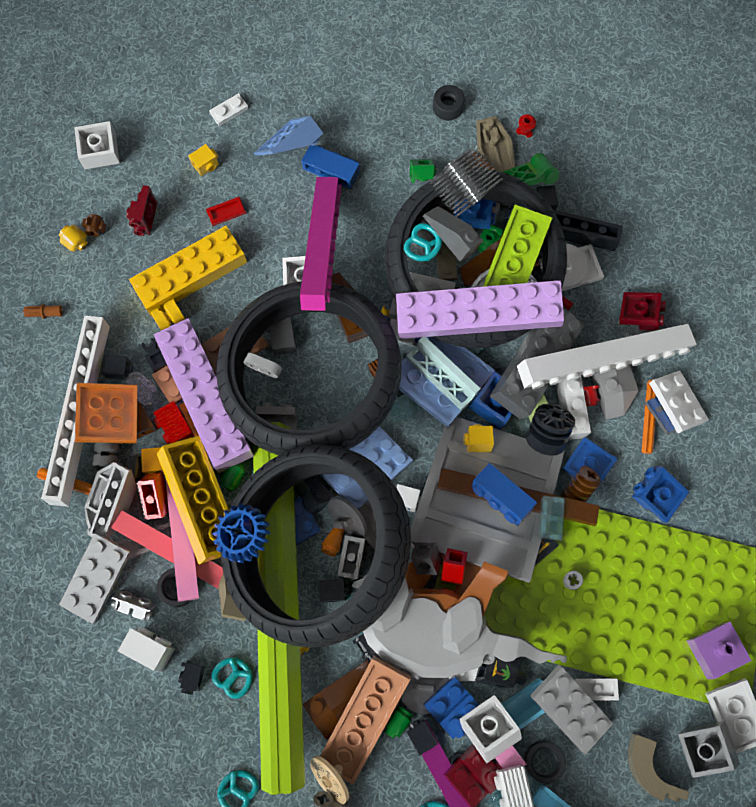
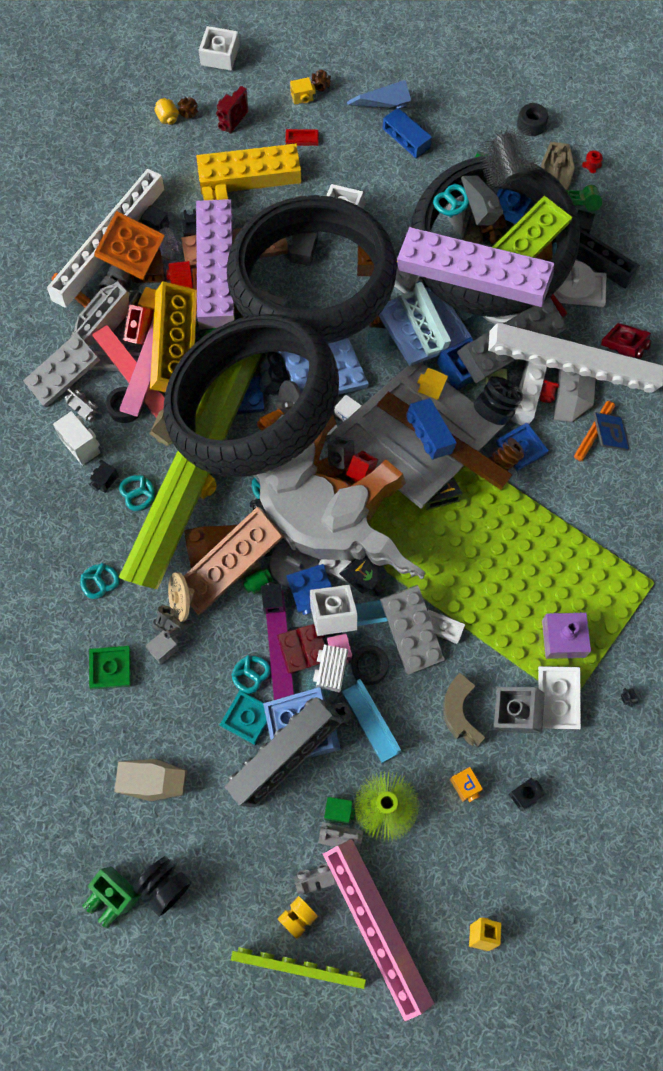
camera: 20 degrees right, 5 degrees down
(43, 311) = (116, 157): dark orange axle -> none
(218, 141) = (321, 80): none -> reddish brown gear
(228, 109) = (341, 61): white plate -> none
(237, 550) = (193, 359): blue gear -> none
(262, 365) = (272, 245): light grey beam -> none
(321, 245) = (366, 177): dark pink brick -> none
(551, 518) = (464, 464): clear light blue hinge -> none
(578, 578) = (462, 536): light grey bush -> none
(660, 493) = (574, 493): blue plate -> none
(678, 401) = (626, 426): white plate -> none

